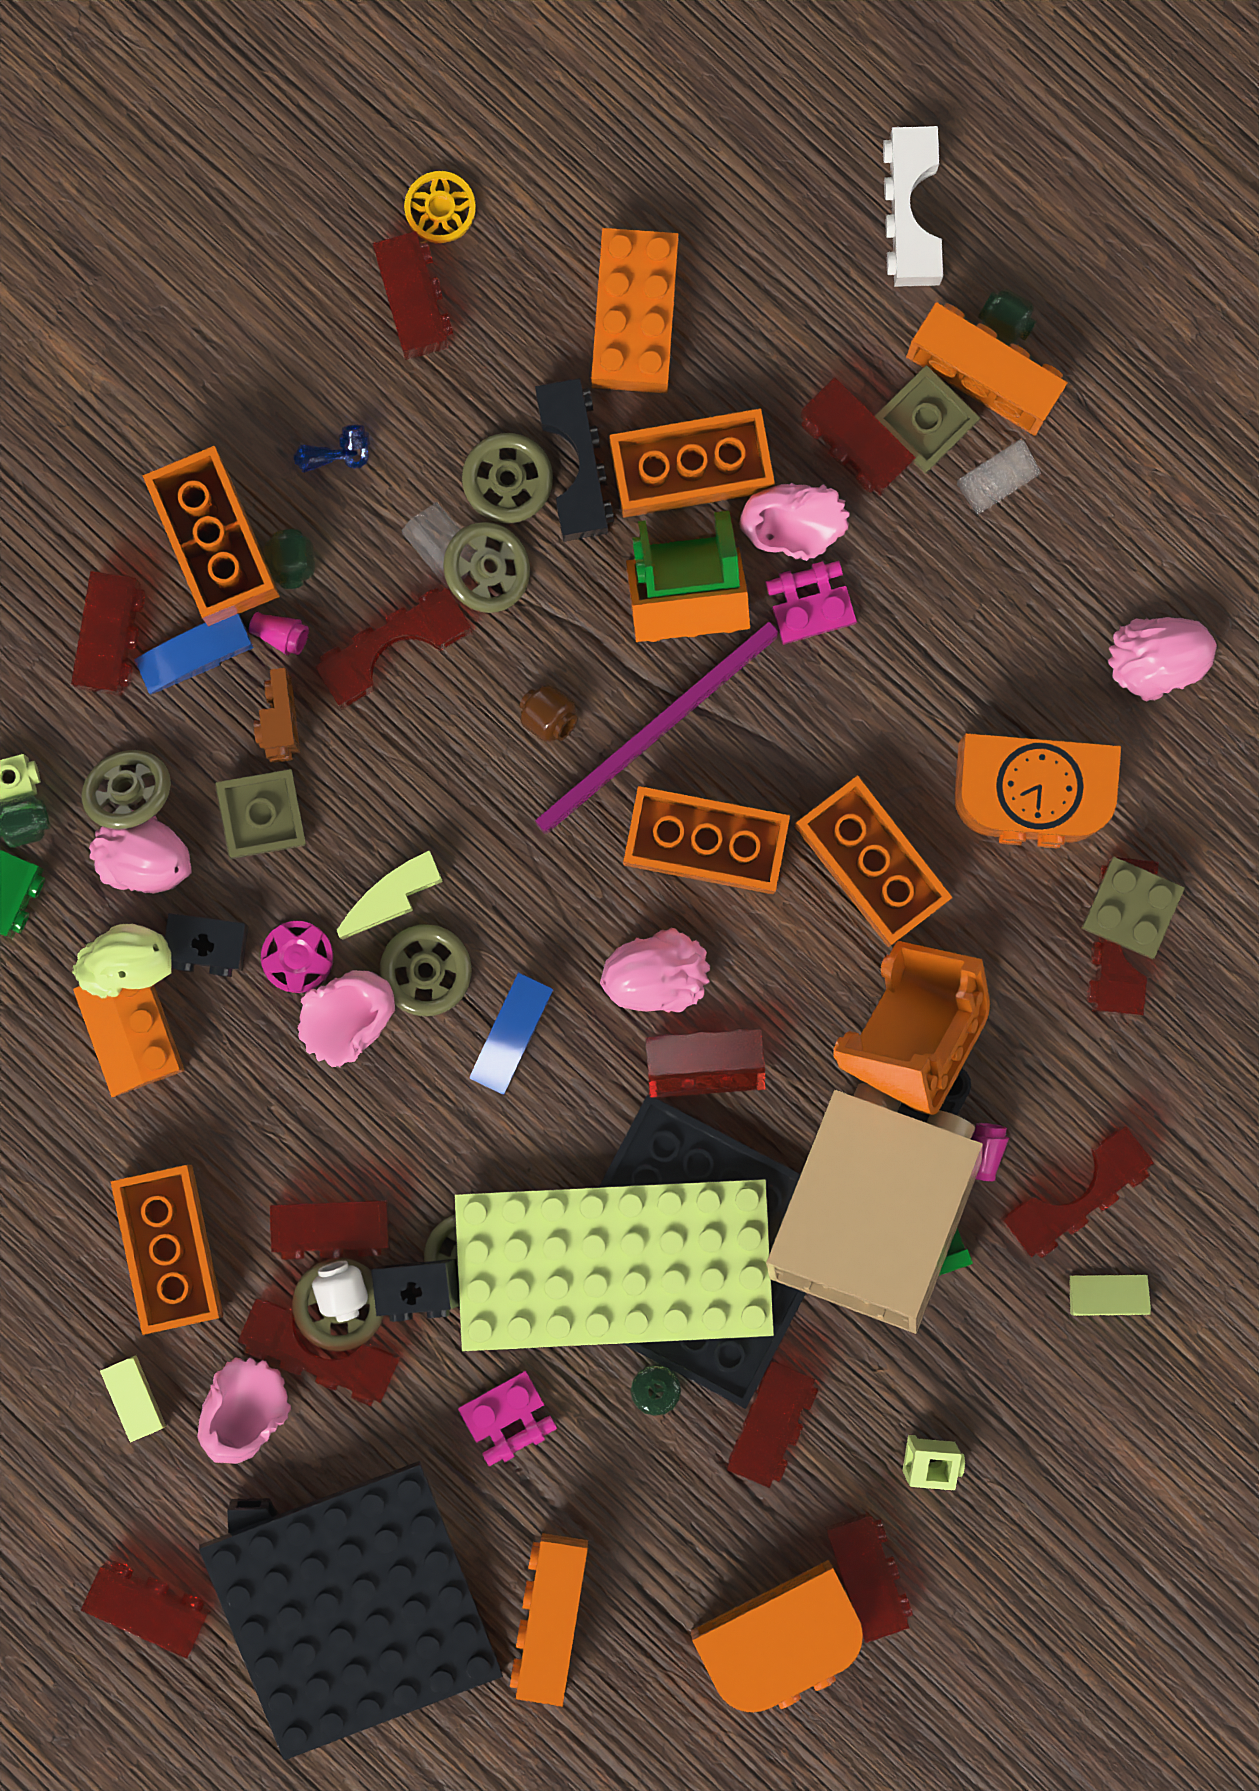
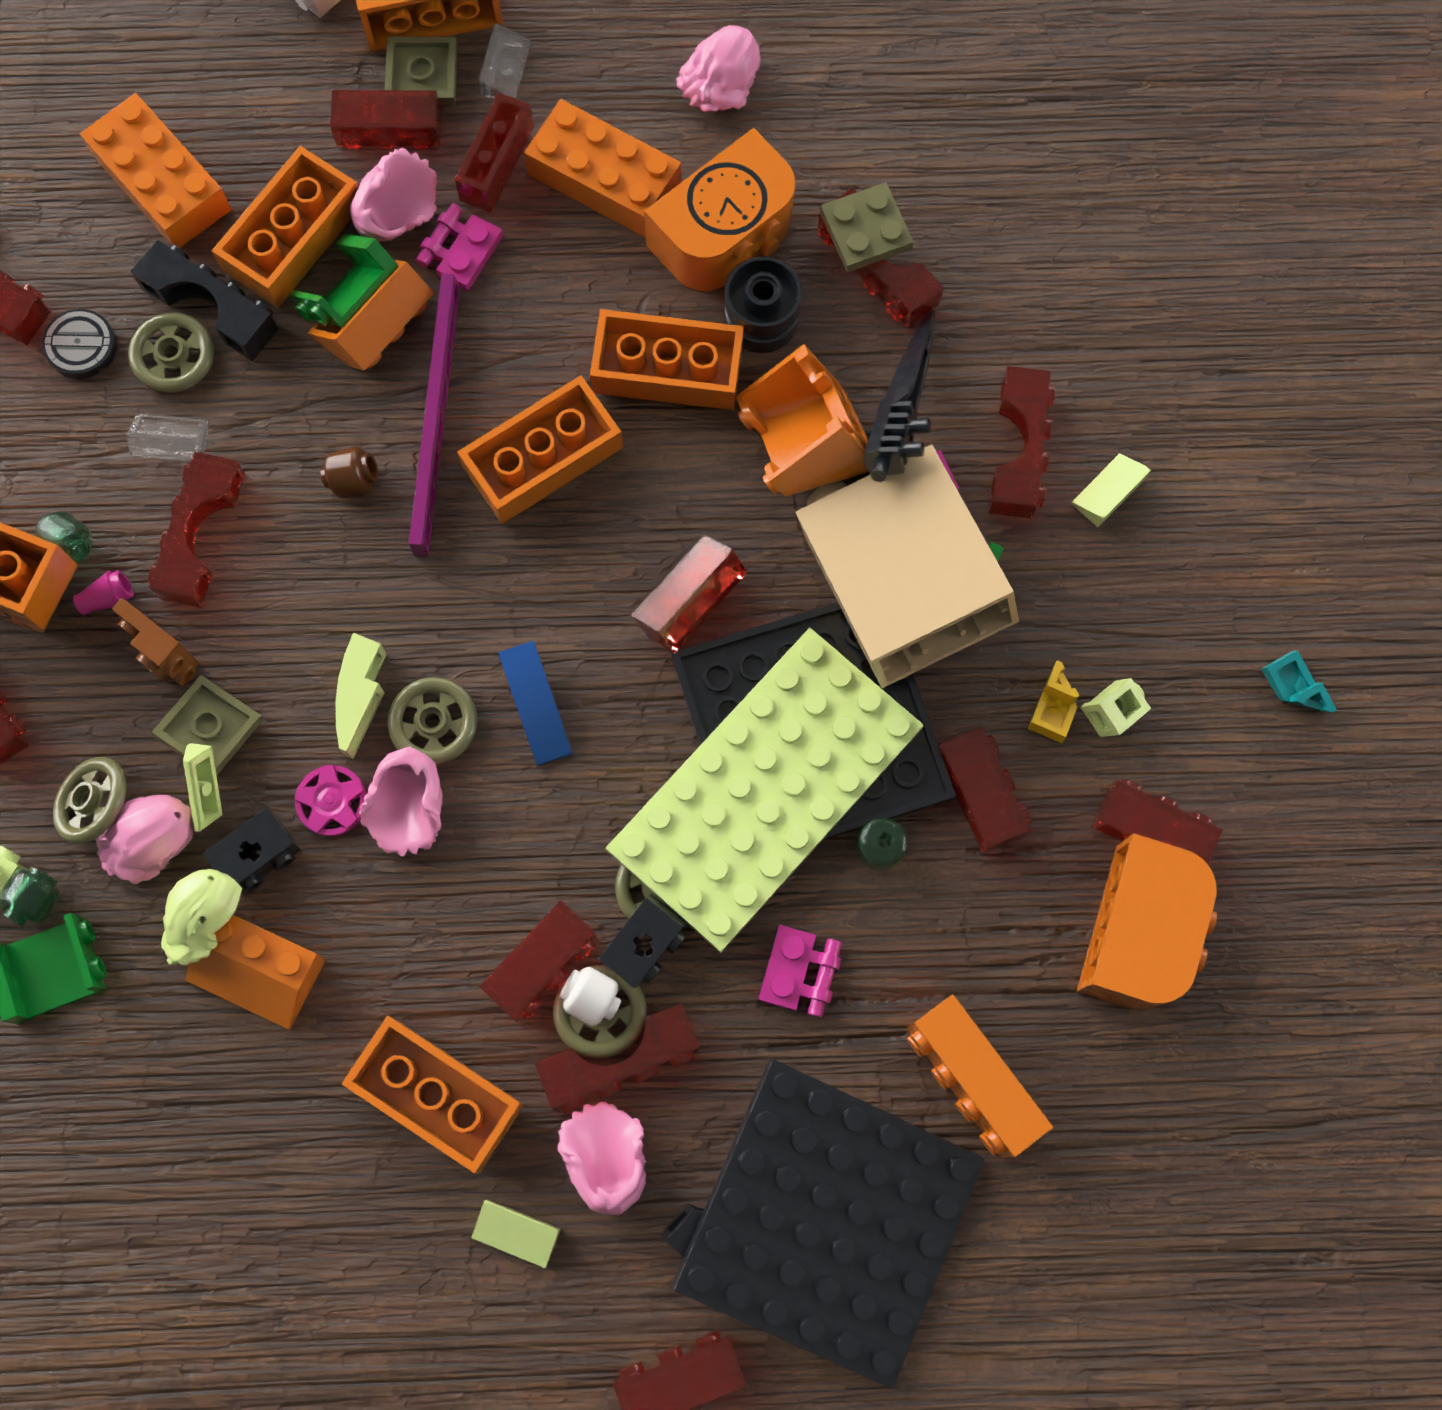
camera: 45 degrees left, 10 degrees down
(193, 653) = (52, 662): blue slope -> none
(215, 861) = (202, 785): none -> yellowish green slope
(352, 438) = (18, 459): clear blue piece -> none
(445, 400) = (79, 343): none -> tile
(510, 549) = (211, 418): olive plate -> none
(656, 973) = (595, 568): bright pink piece -> none
(891, 1415) = (1055, 707): none -> yellow slope
(911, 554) = (494, 152): none -> clear red brick
(984, 649) = (600, 165): none -> orange brick
(984, 1092) = (897, 414): none -> black piece
(990, 889) = (766, 301): none -> black wheel
(1087, 1579) = (1295, 685): none -> teal slope

